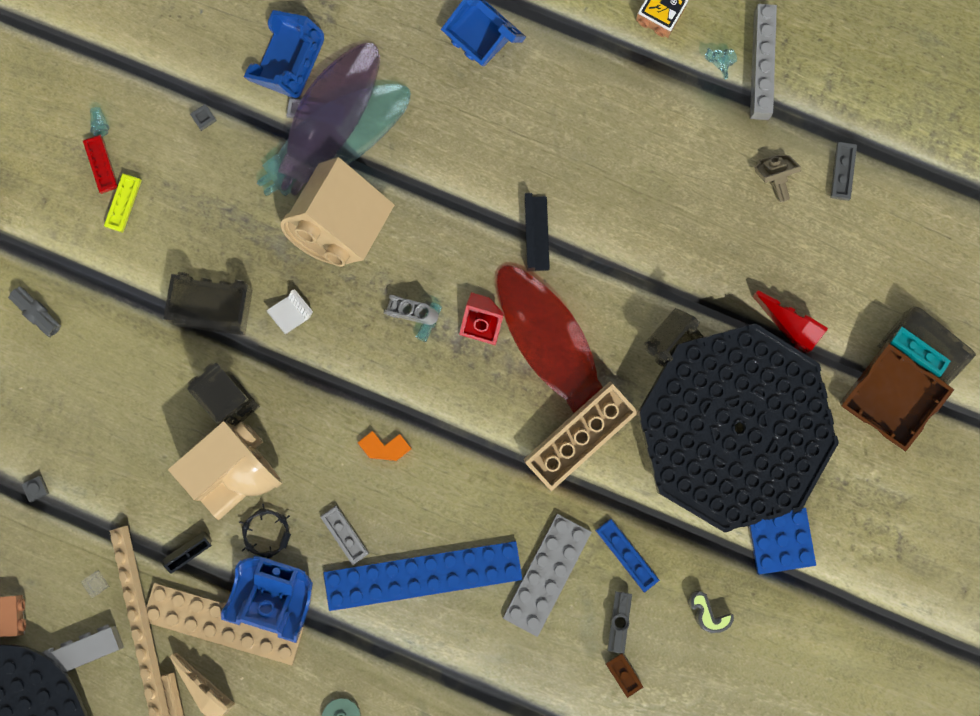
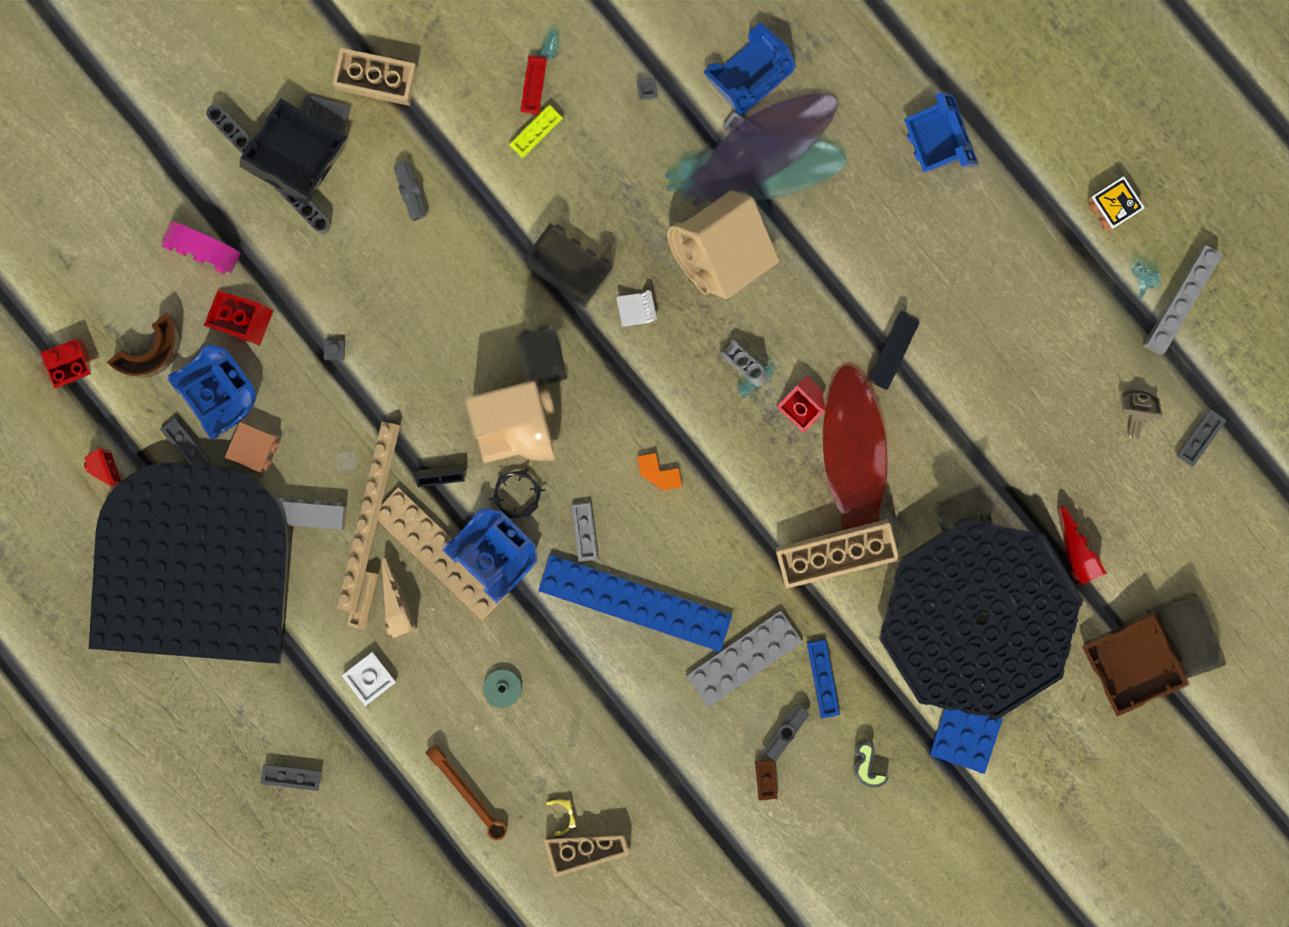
camera: 25 degrees right, 5 degrees up
(920, 352) = (1177, 636): teal plate -> none

